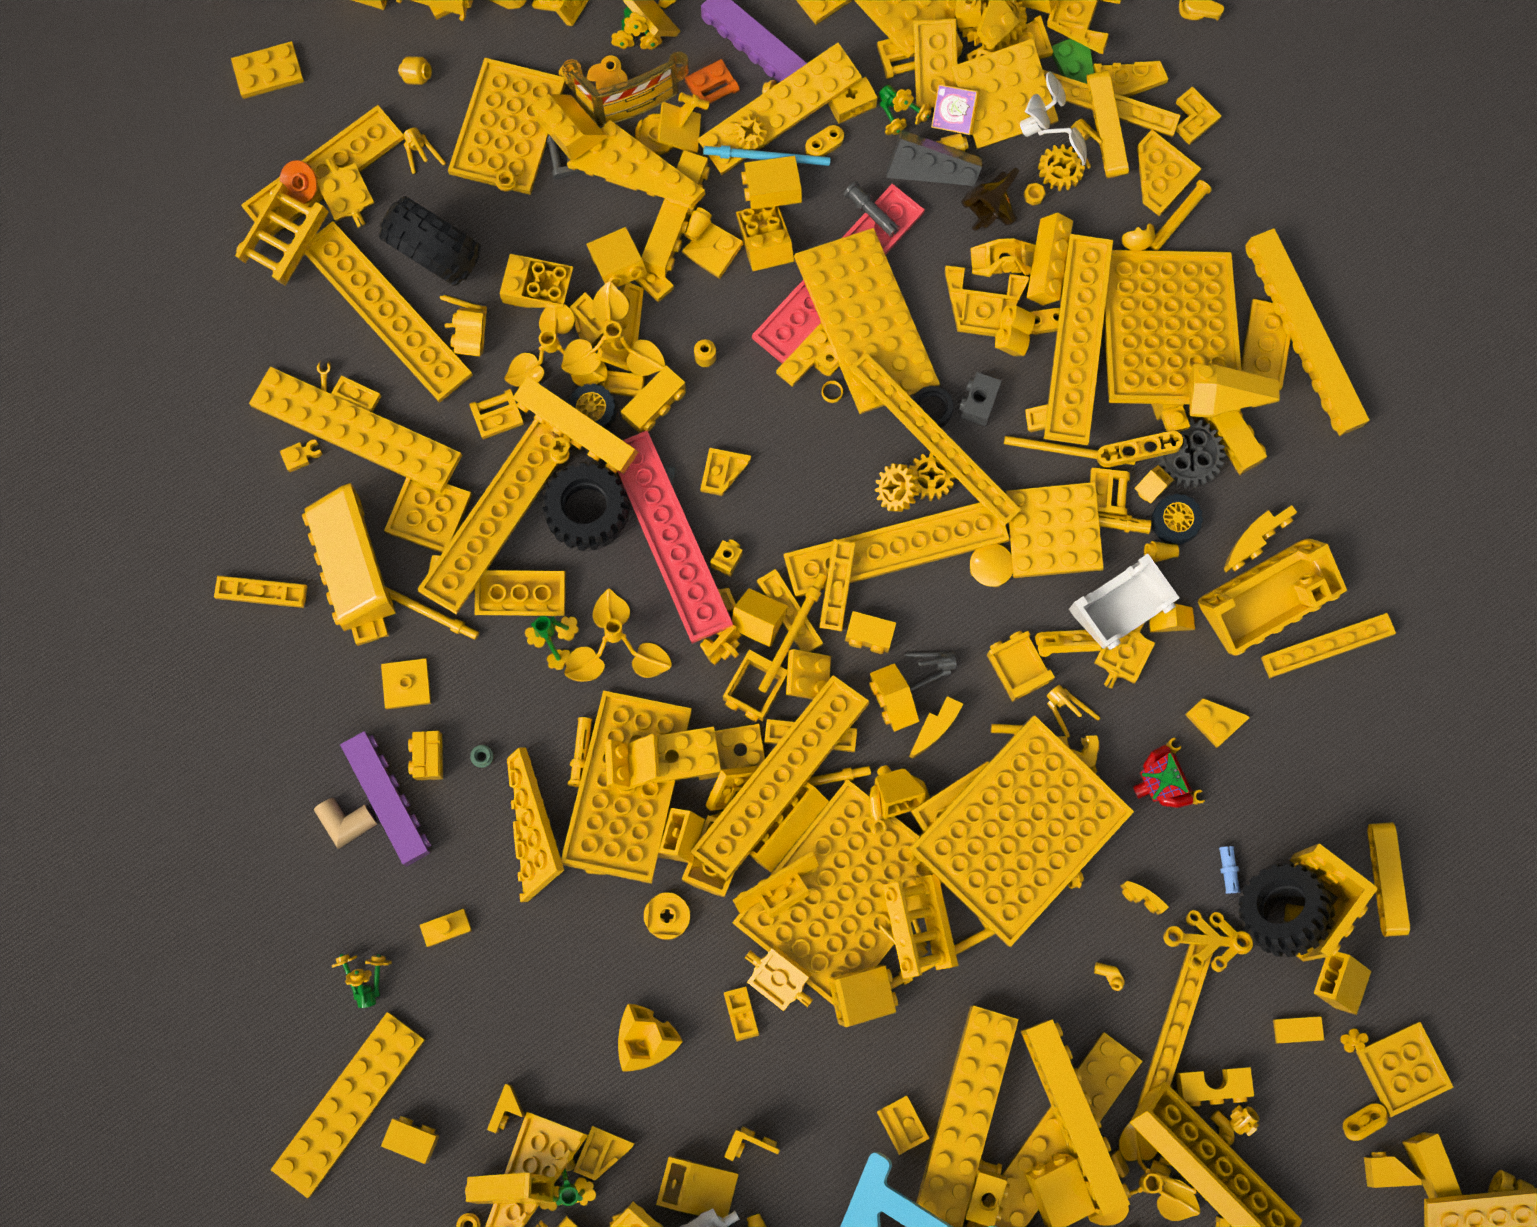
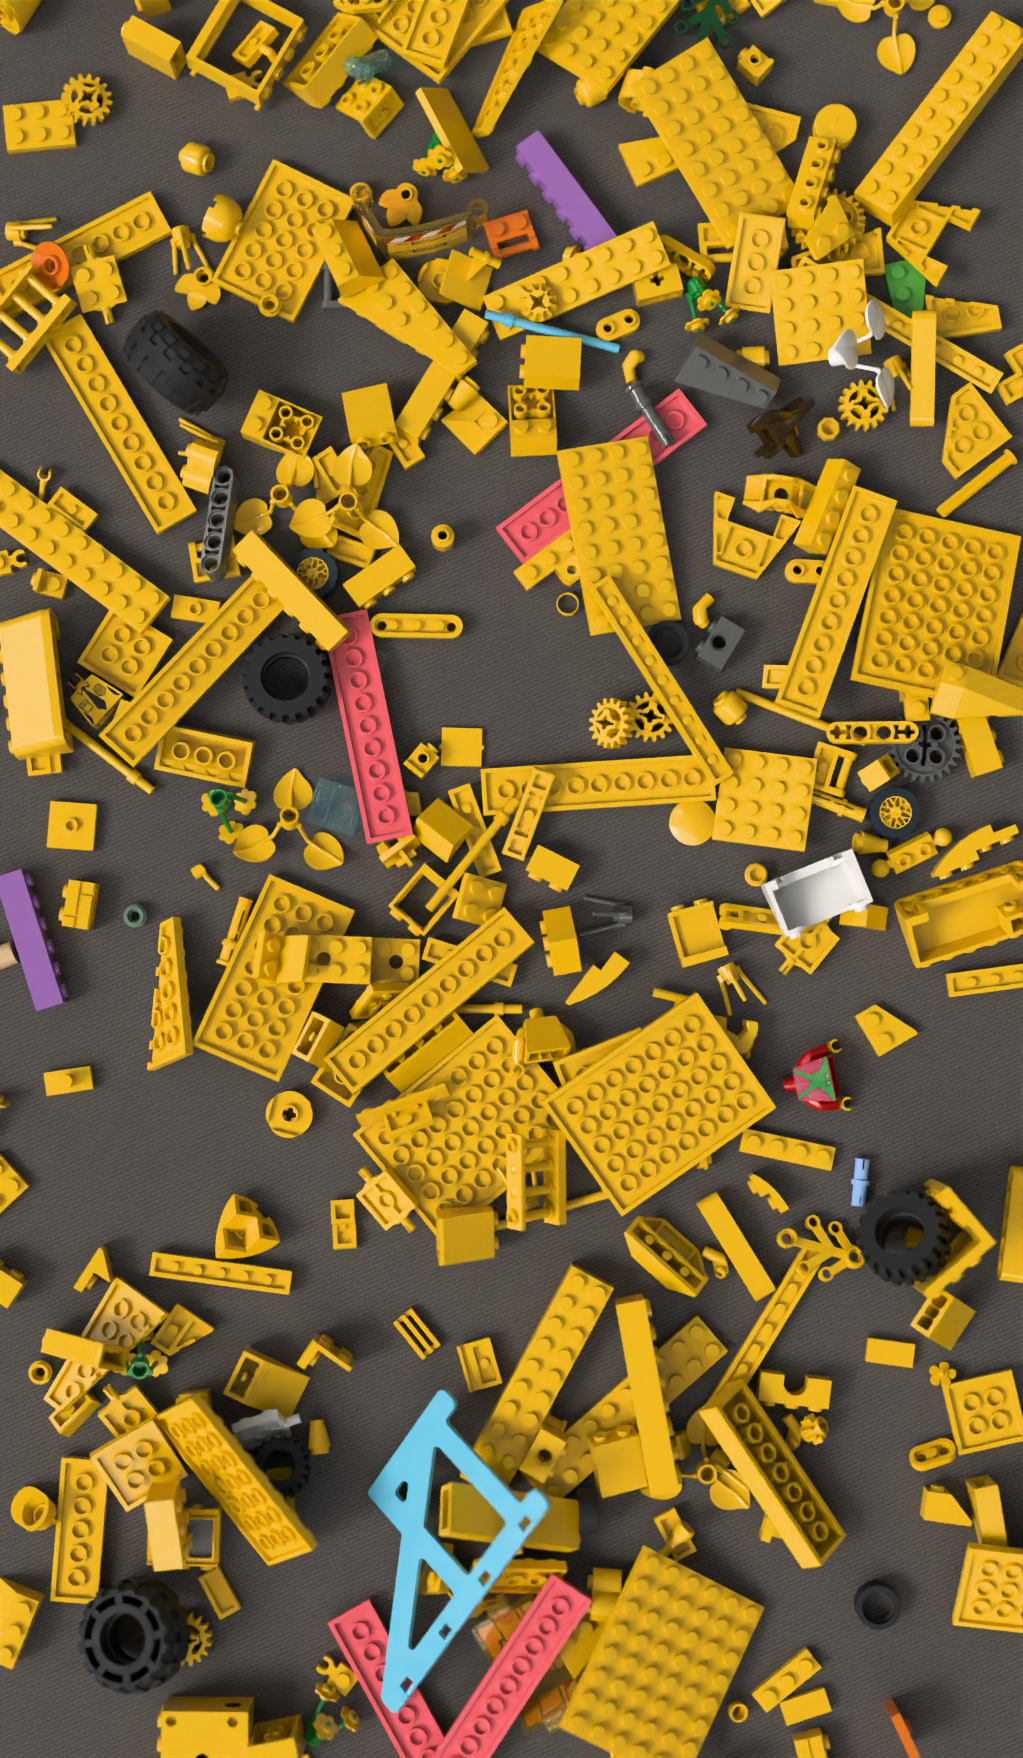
camera: 15 degrees right, 10 degrees up
(263, 161) = (18, 230): none -> yellow plant
(306, 34) = (86, 89): none -> yellow gear
(345, 465) = (49, 583): none -> yellow bracket
(407, 560) = (94, 698): none -> yellow torso
(437, 183) = (199, 291): none -> yellow plate
(449, 115) = (223, 220): none -> yellow cylinder
(485, 462) = (193, 609): none -> yellow plate
(499, 387) = (223, 533): none -> dark grey beam
(535, 701) = (199, 871): none -> yellow hand
(555, 455) = (265, 619): yellow bush -> none
(630, 1086) = (221, 1272): none -> yellow plate
(653, 616) = (334, 807): none -> clear light blue slope
(696, 437) = (416, 626): none -> yellow plate
(722, 470) = (436, 667): yellow wing -> none
(761, 539) = (461, 747): none -> yellow piece
(819, 1095) = (429, 1349): none -> yellow tile
(843, 170) = (629, 364): none -> yellow arm
(879, 70) = (693, 257): none -> yellow beam
(955, 109) = (764, 319): tile -> none
(955, 374) = (700, 611): none -> yellow arm
(1003, 454) = (730, 708): none -> yellow head
(1014, 330) = (772, 577): yellow brick -> none
(1061, 978) = (666, 1254): none -> yellow wedge
(1062, 601) = (756, 874): none -> yellow plate
(1126, 956) = (736, 1246): none -> yellow beam
(1139, 239) = (927, 503): yellow hair -> none
(1152, 852) = (787, 1149): none -> yellow plate
(1202, 552) = (911, 852): none -> yellow plate

